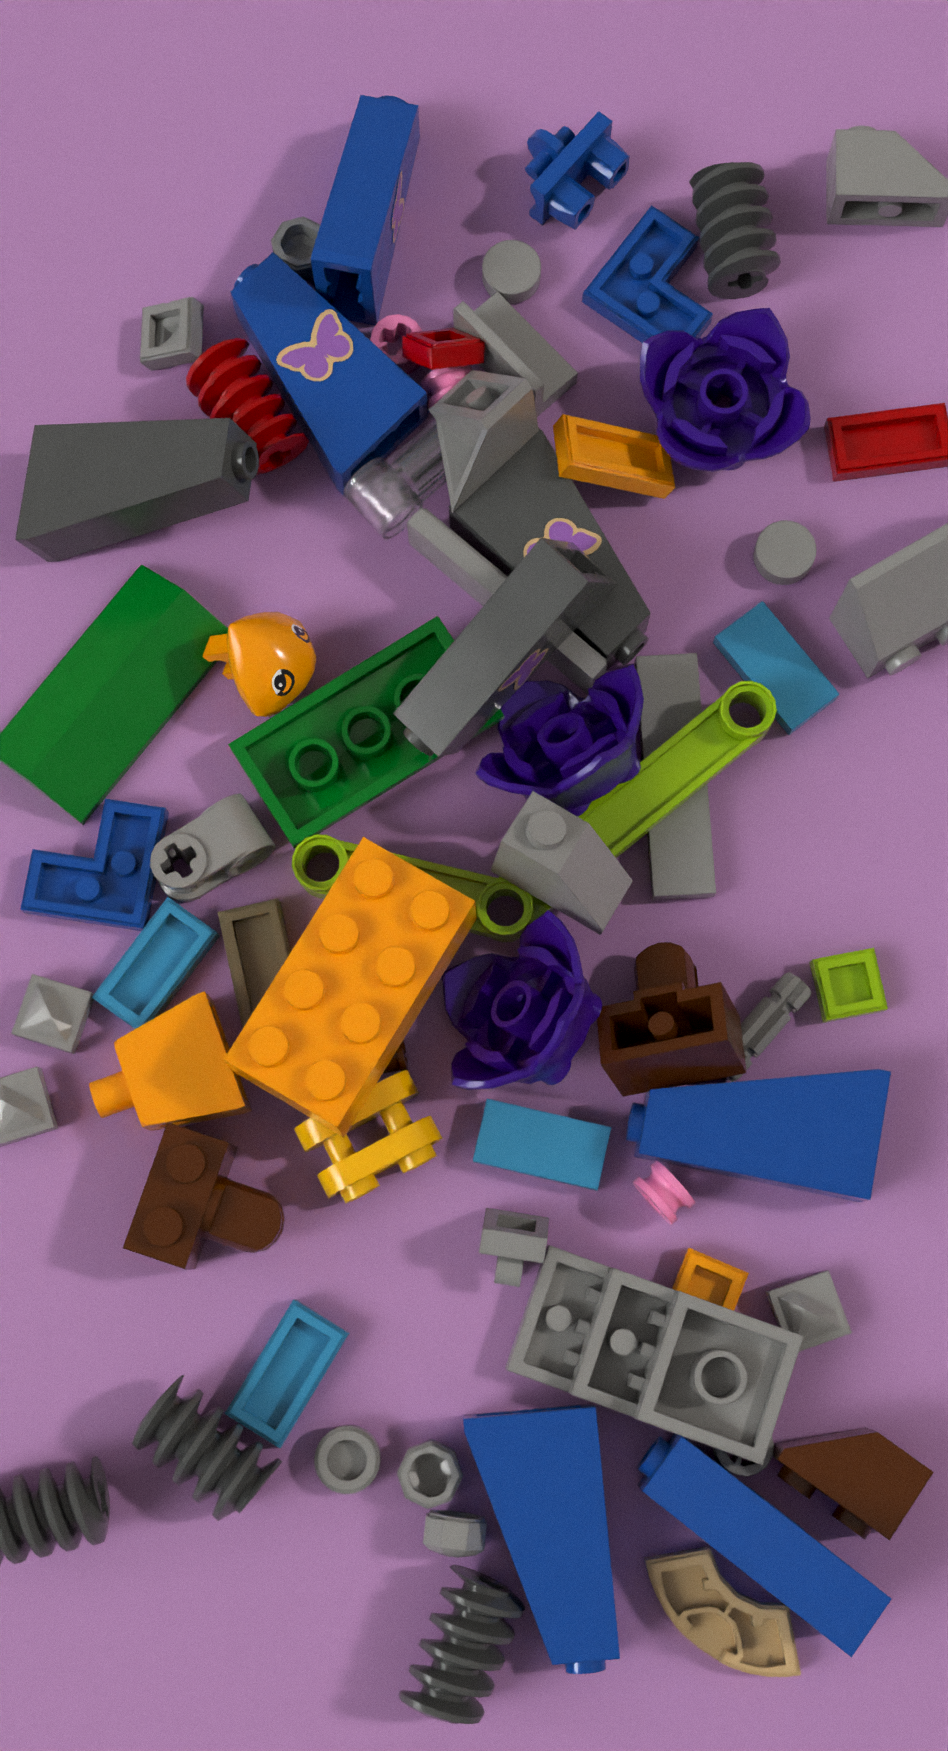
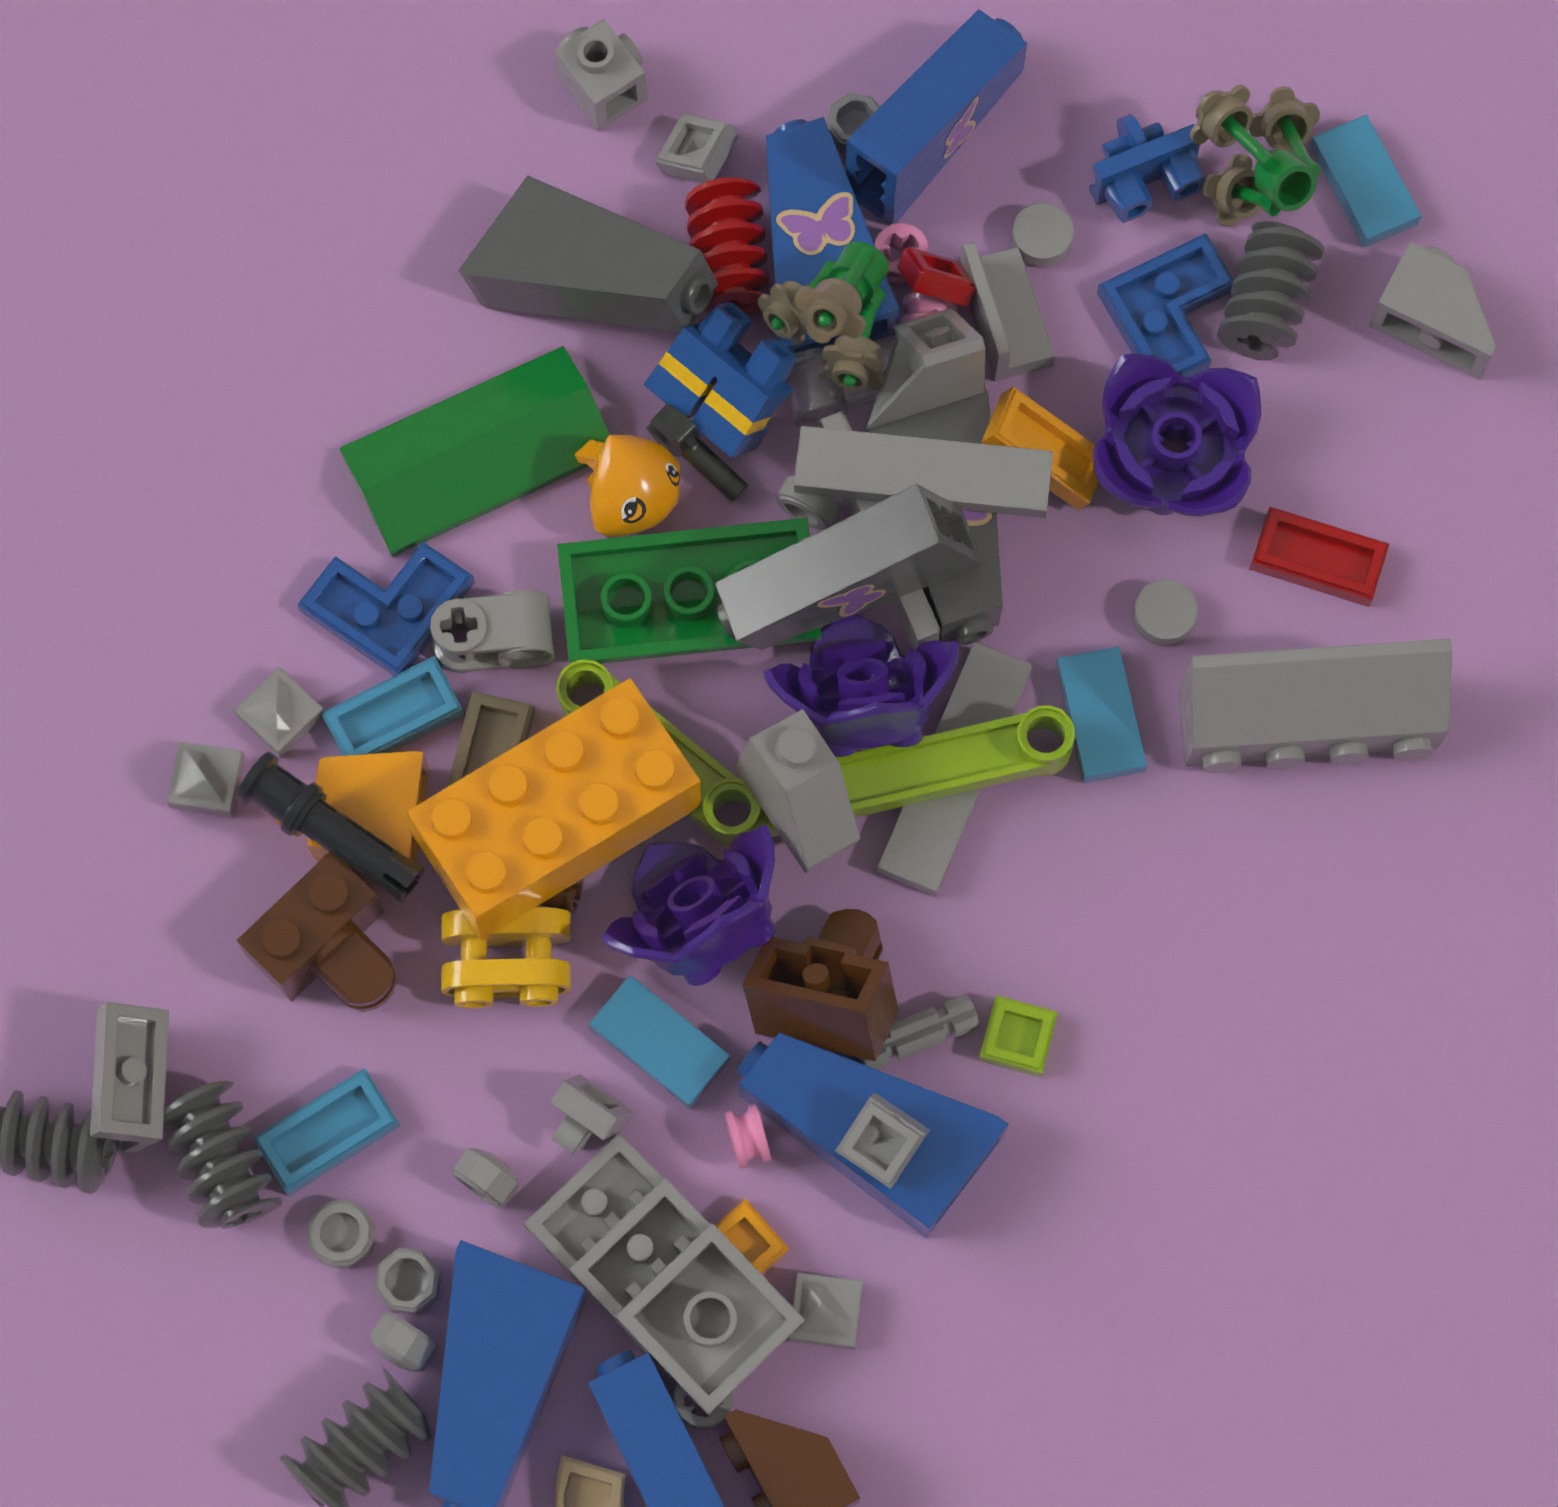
camera: 25 degrees right, 5 degrees down
(53, 304) = (601, 72): none -> light grey brick
(86, 1419) = (129, 1075): none -> light grey panel
(127, 1099) = (306, 812): none -> black pin
(287, 596) = (681, 438): none -> pearl dark grey bar
(303, 529) = (722, 382): none -> blue hips
(376, 421) = (831, 309): none -> dark tan plant
(427, 600) = (818, 508): none -> light grey tile
(453, 1344) = (486, 1176): none -> light grey tile
(510, 527) = (962, 472): none -> light grey tile
(670, 84) = (1282, 176): none -> plant
(762, 98) = (1365, 180): none -> dark azure tile
(794, 1143) = (882, 1140): none -> light grey tile

